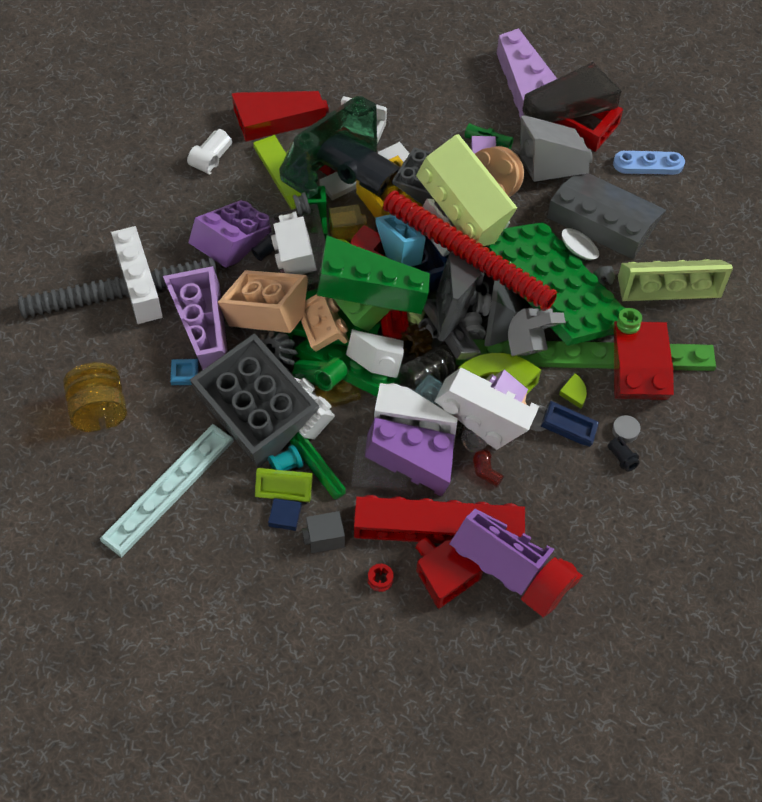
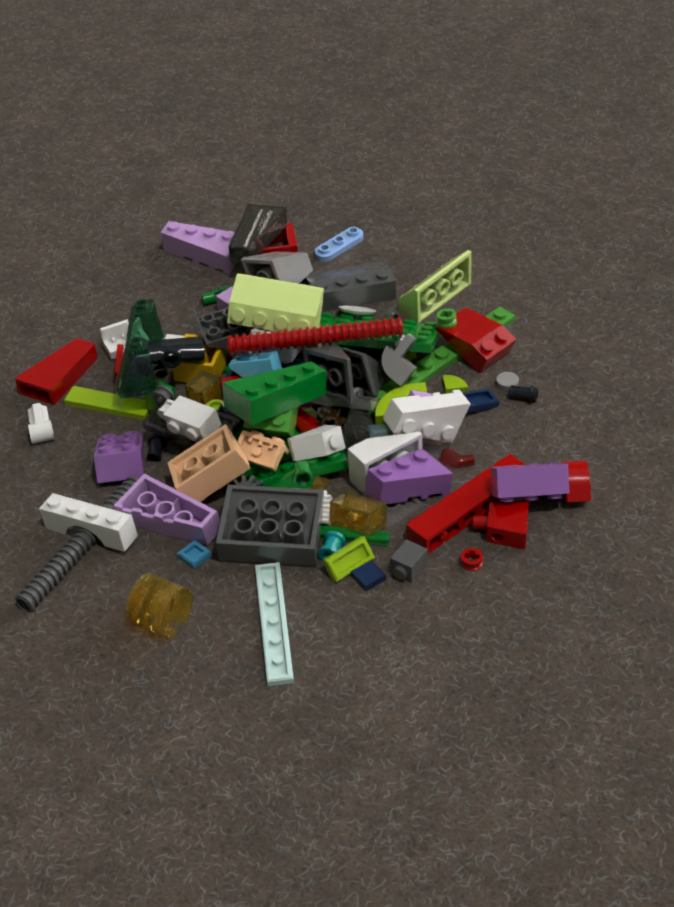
camera: 40 degrees left, 15 degrees down
(335, 450) = (358, 513): none -> clear yellow brick

